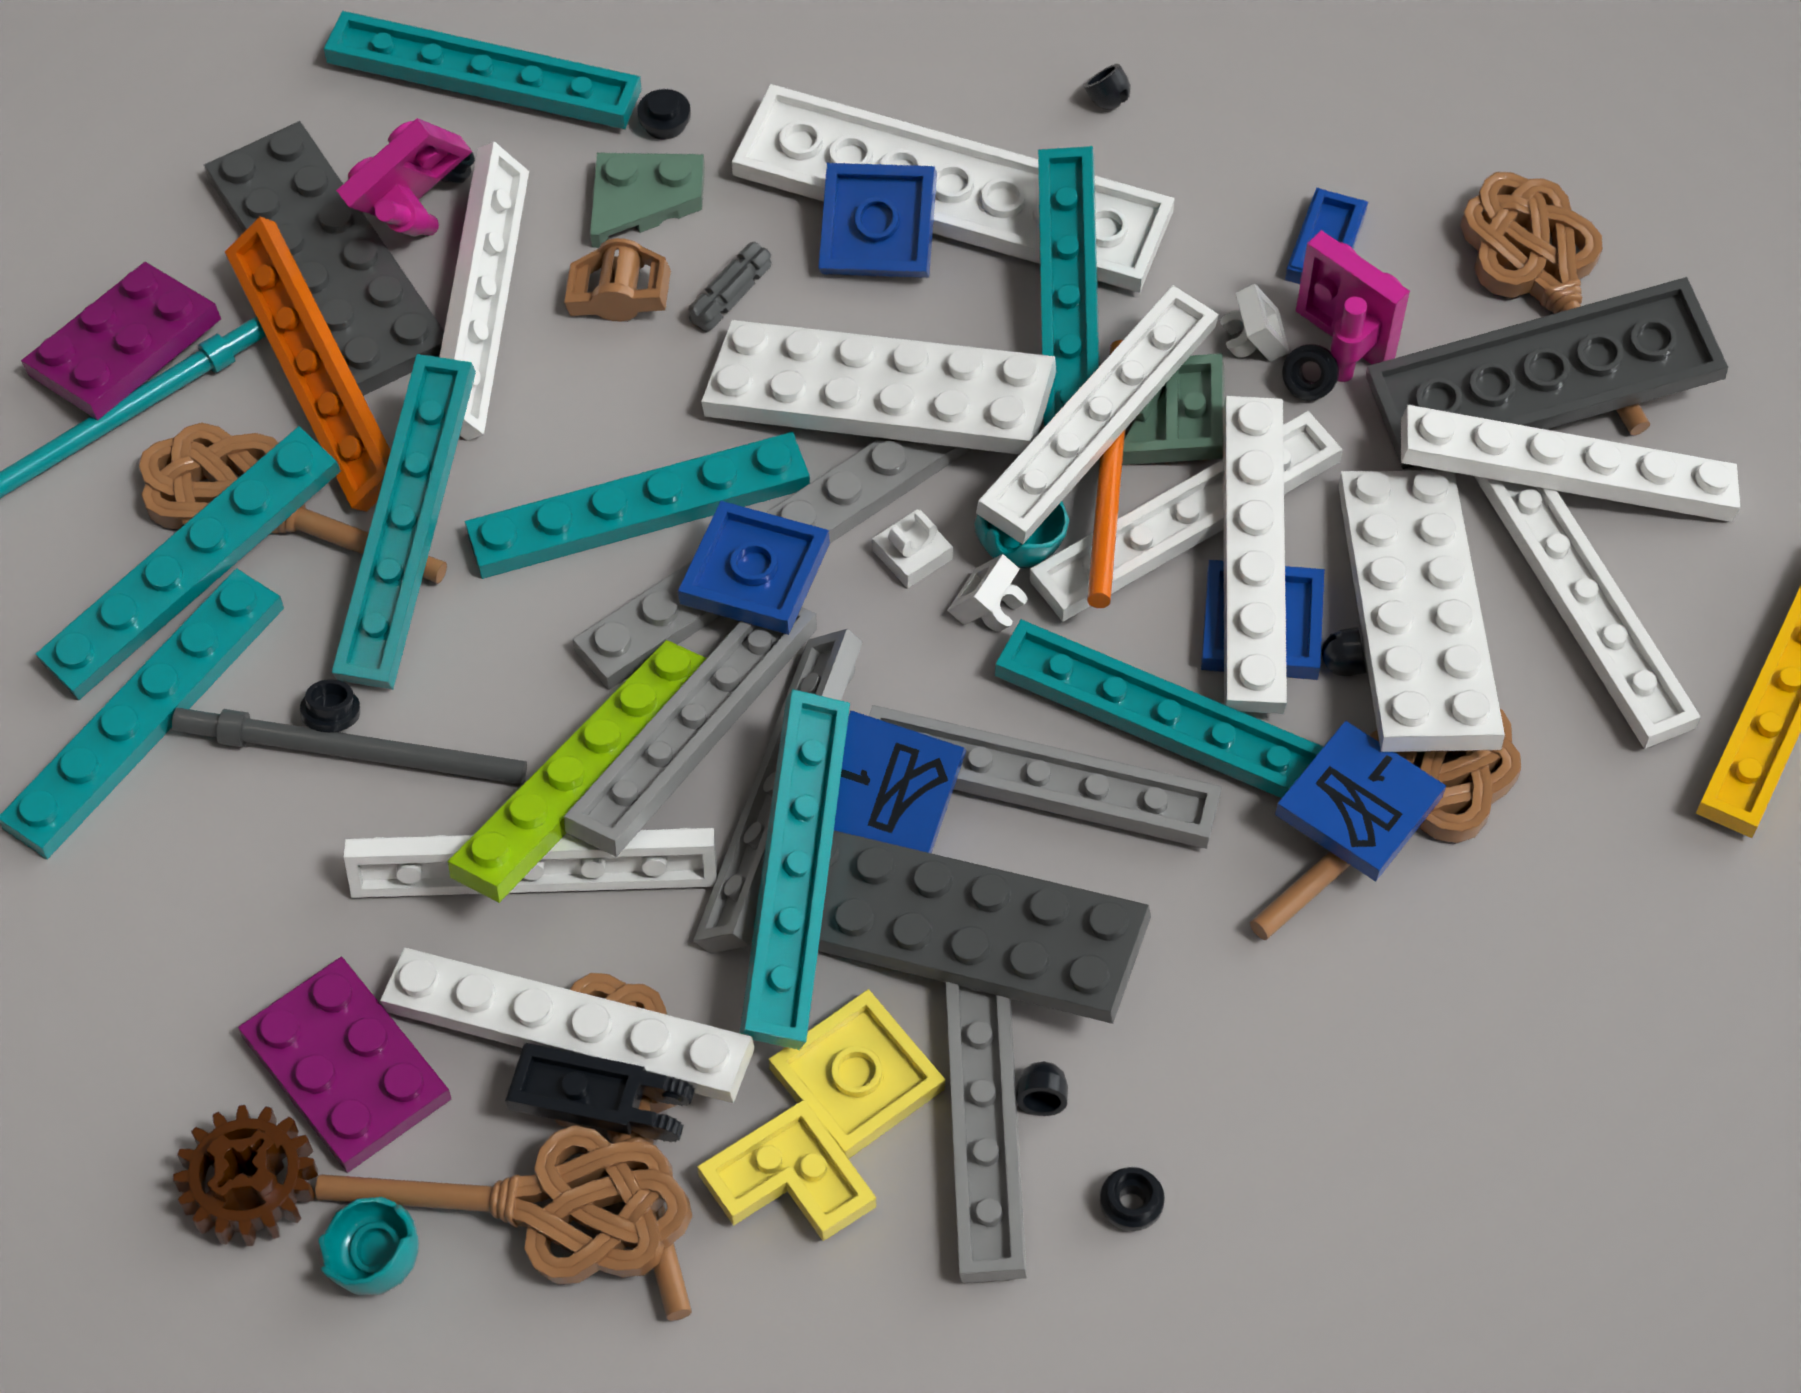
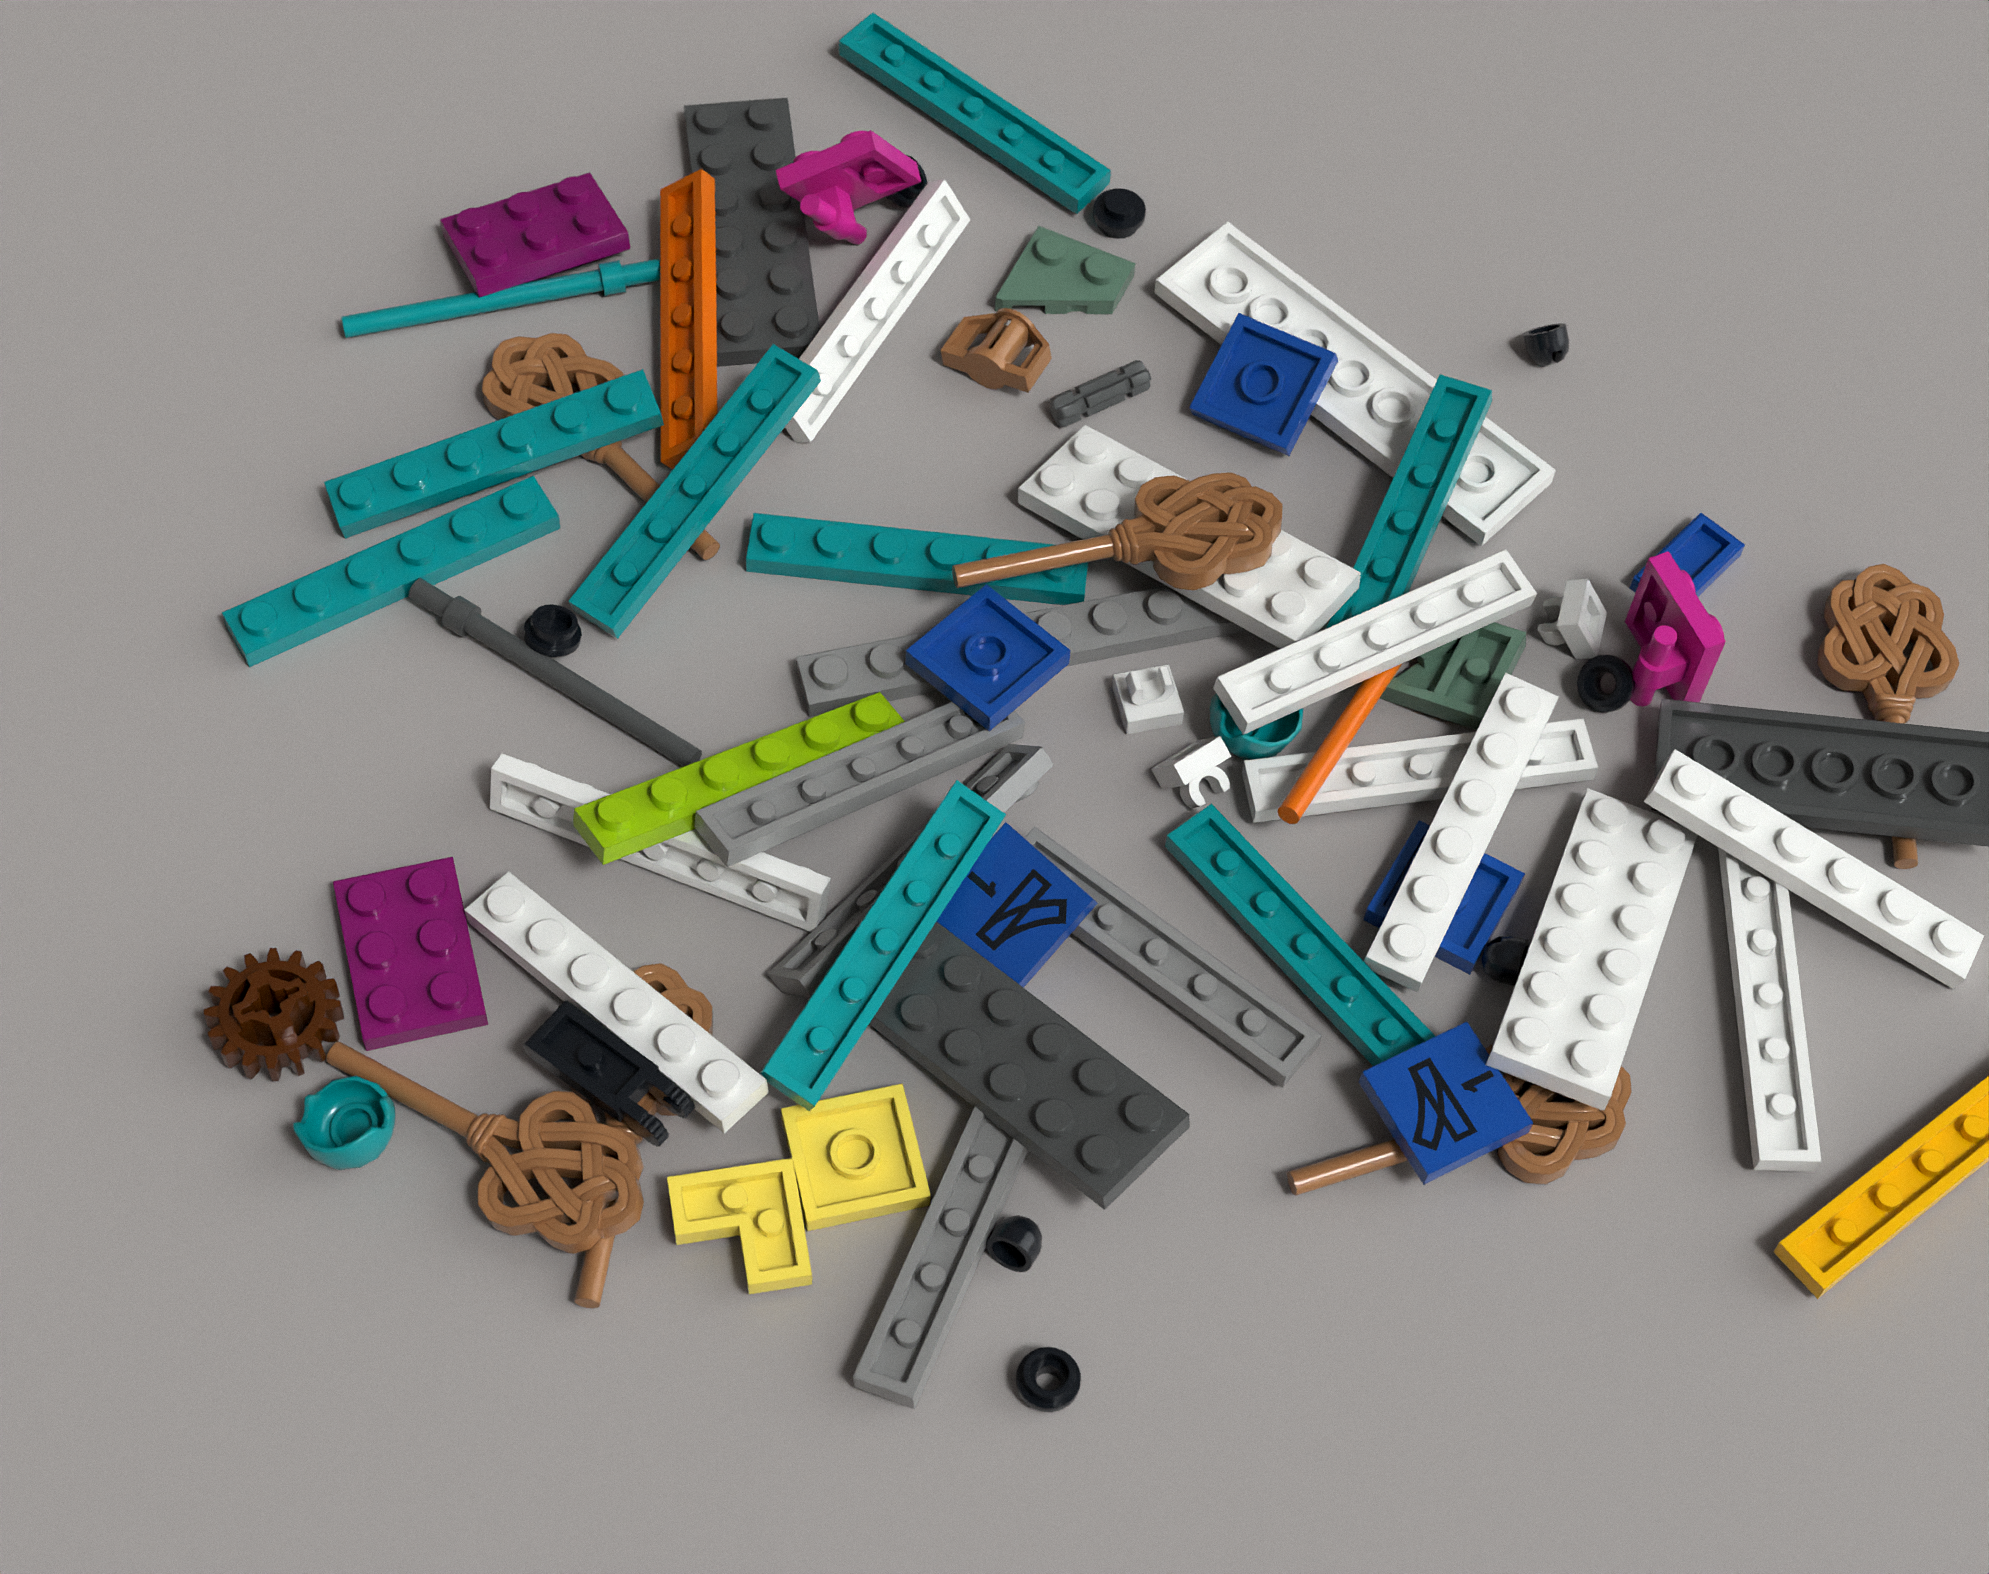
camera: 20 degrees right, 0 degrees up
(889, 379) = (1181, 525): none -> medium nougat piece

